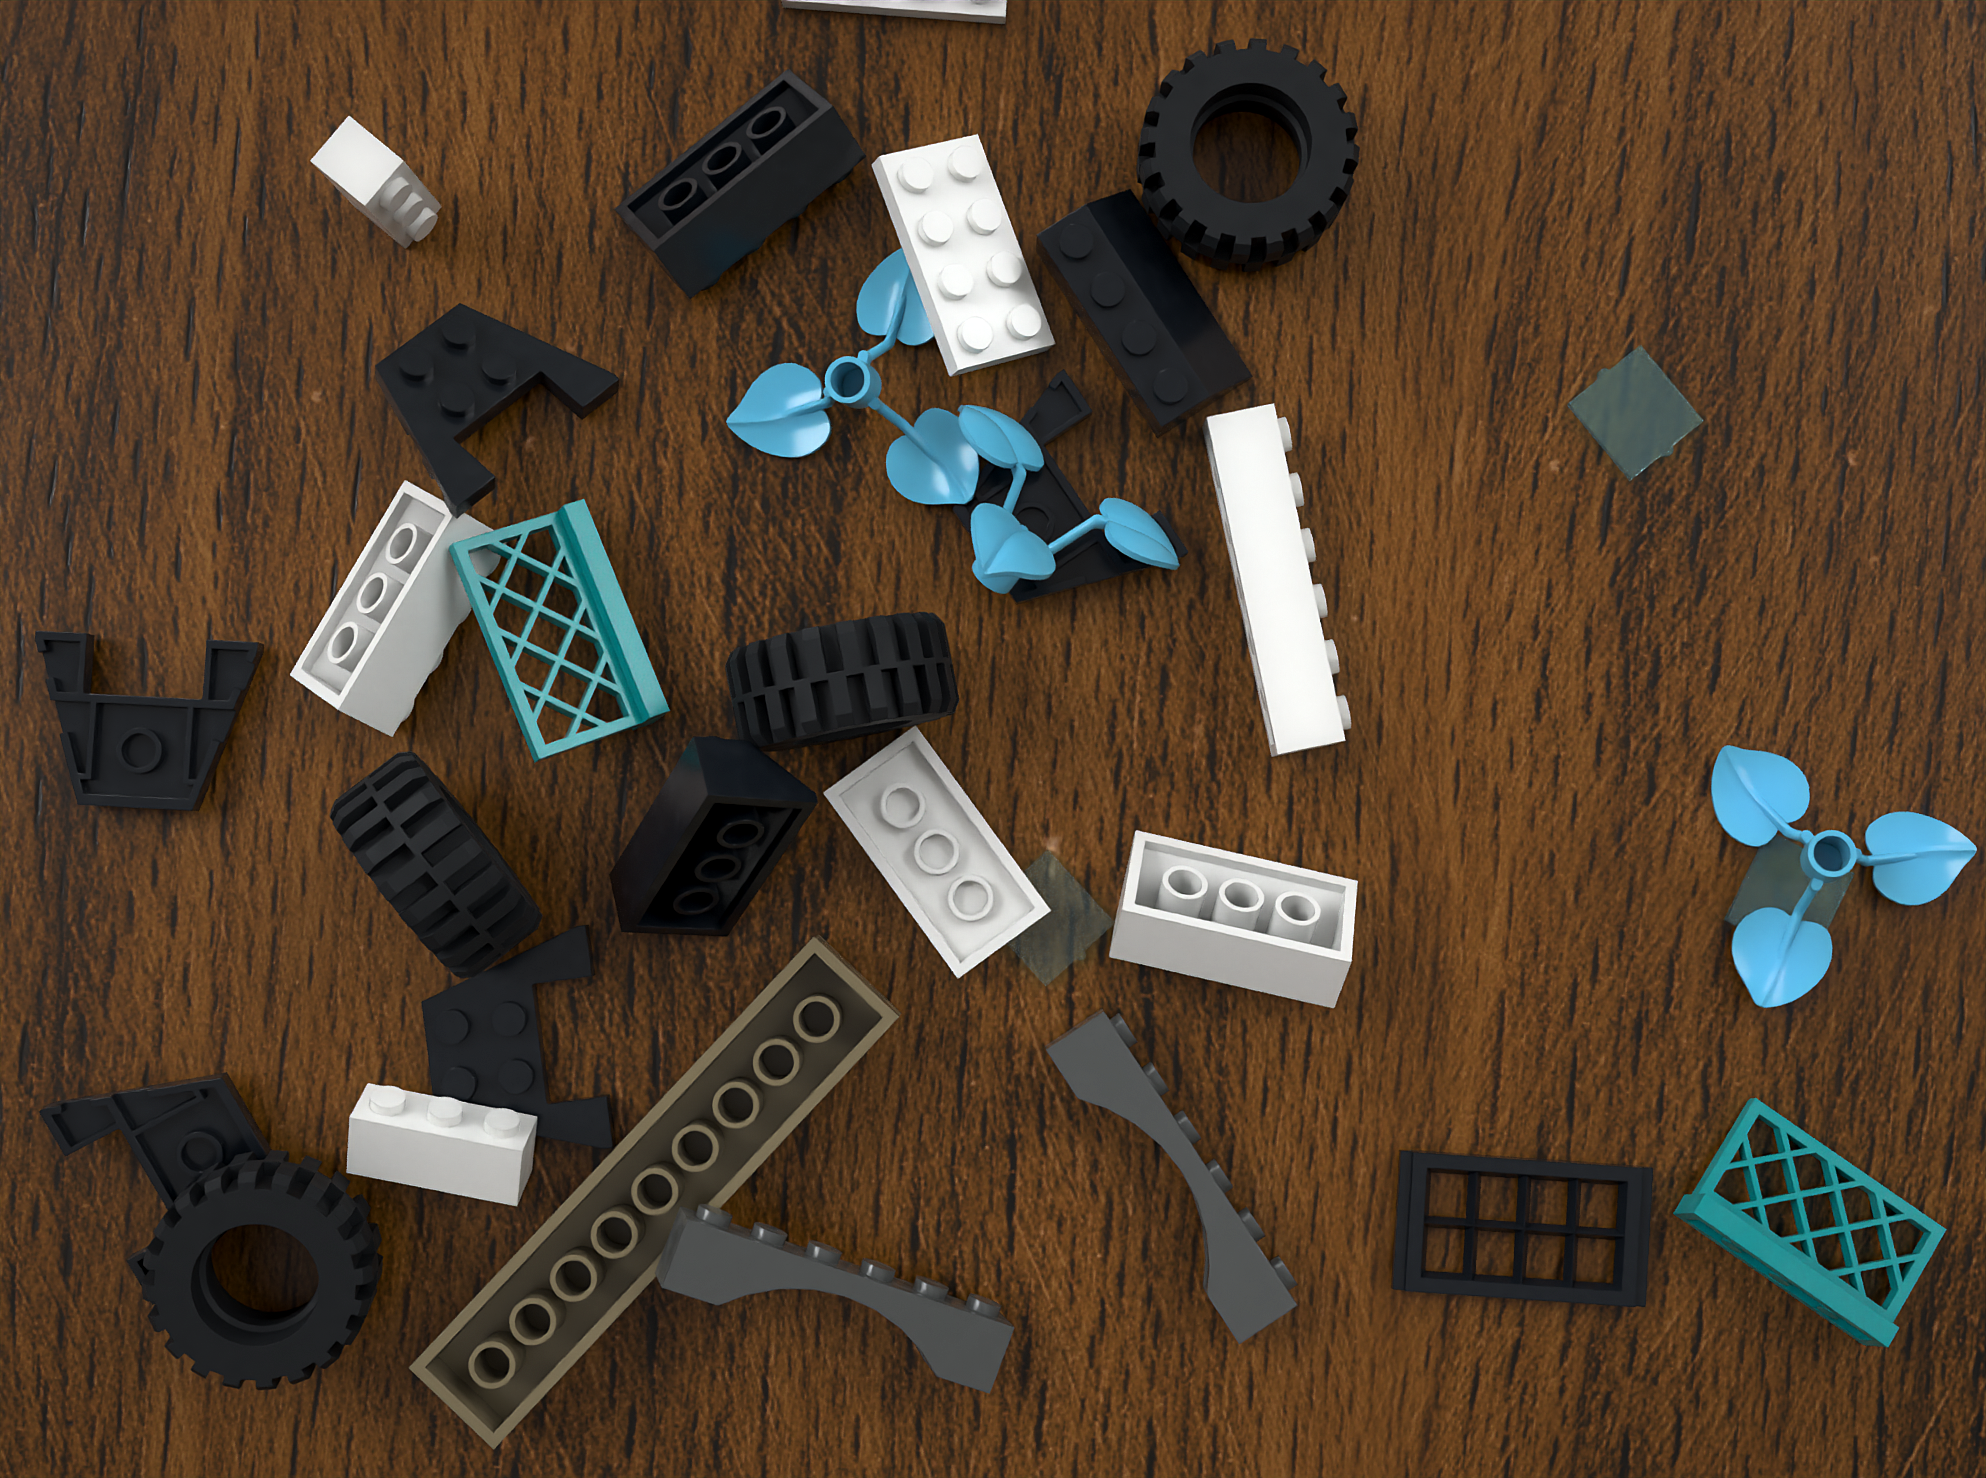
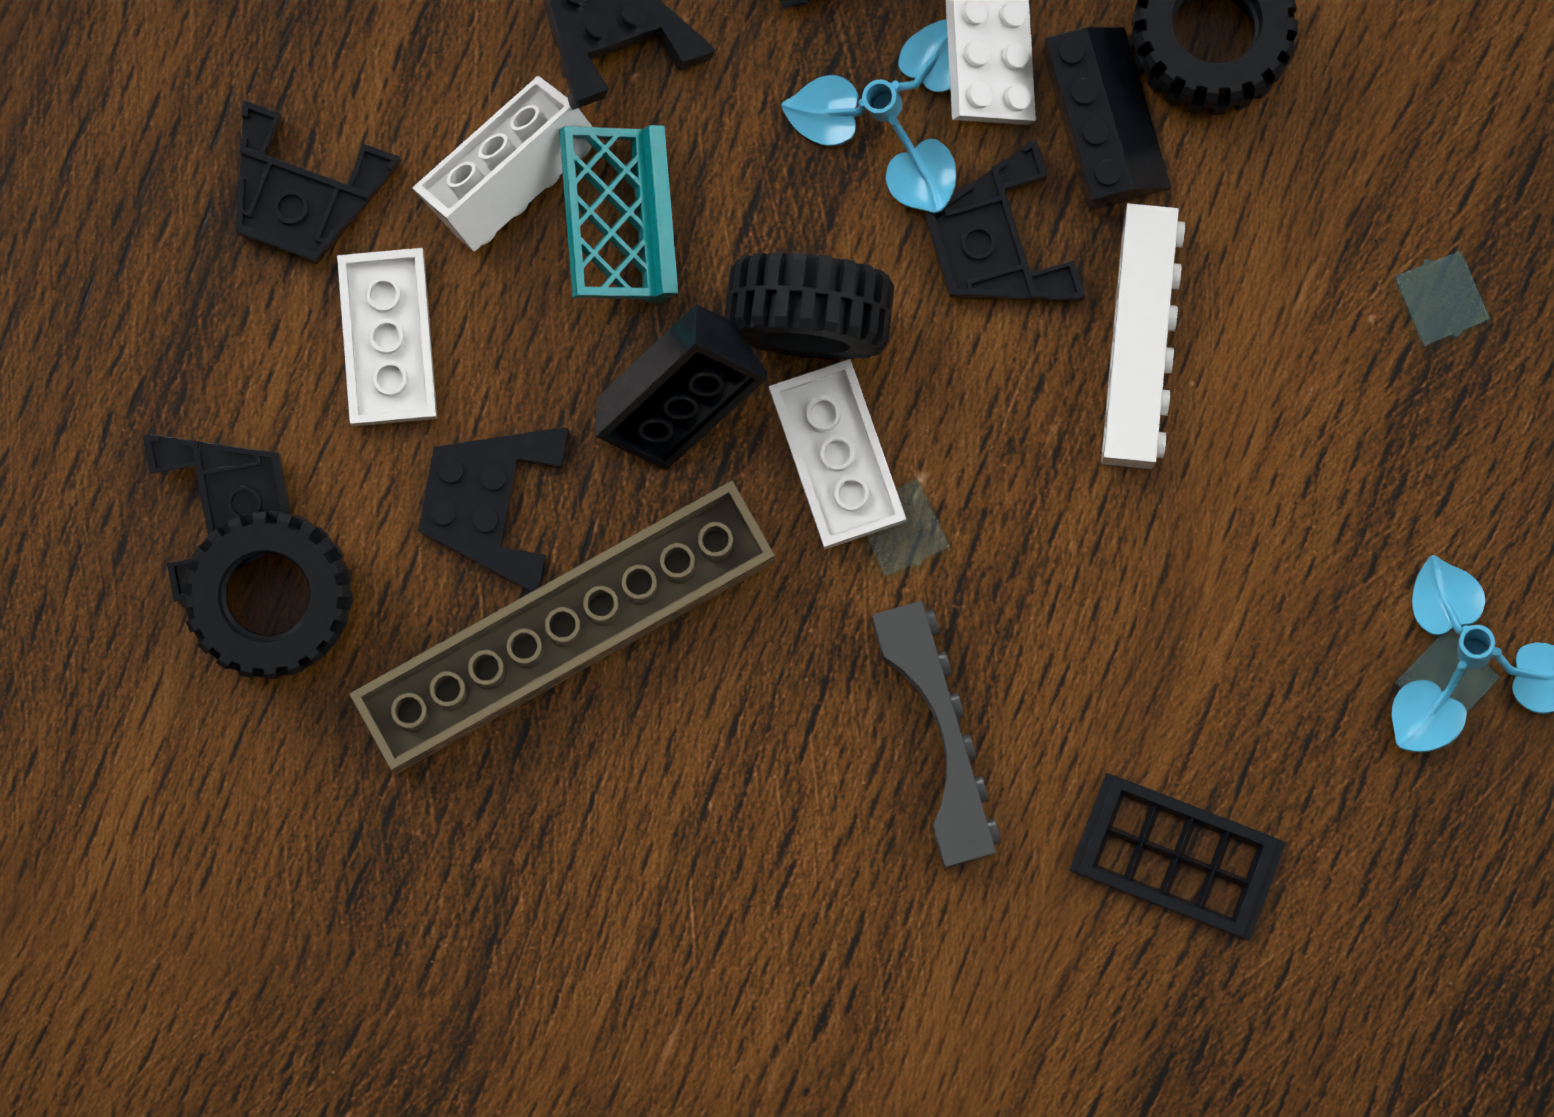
camera: 20 degrees right, 5 degrees down
(314, 892) = (387, 337): none -> white plate
(435, 865) = (484, 344): black tyre -> none
(441, 1144) = (418, 548): white brick -> none
(725, 1261) = (735, 796): dark grey arch -> none
(1008, 549) = (956, 248): medium azure plant -> none
(1235, 919) = (1036, 568): white slope -> none
(1799, 1271) = (1362, 942): teal fence -> none

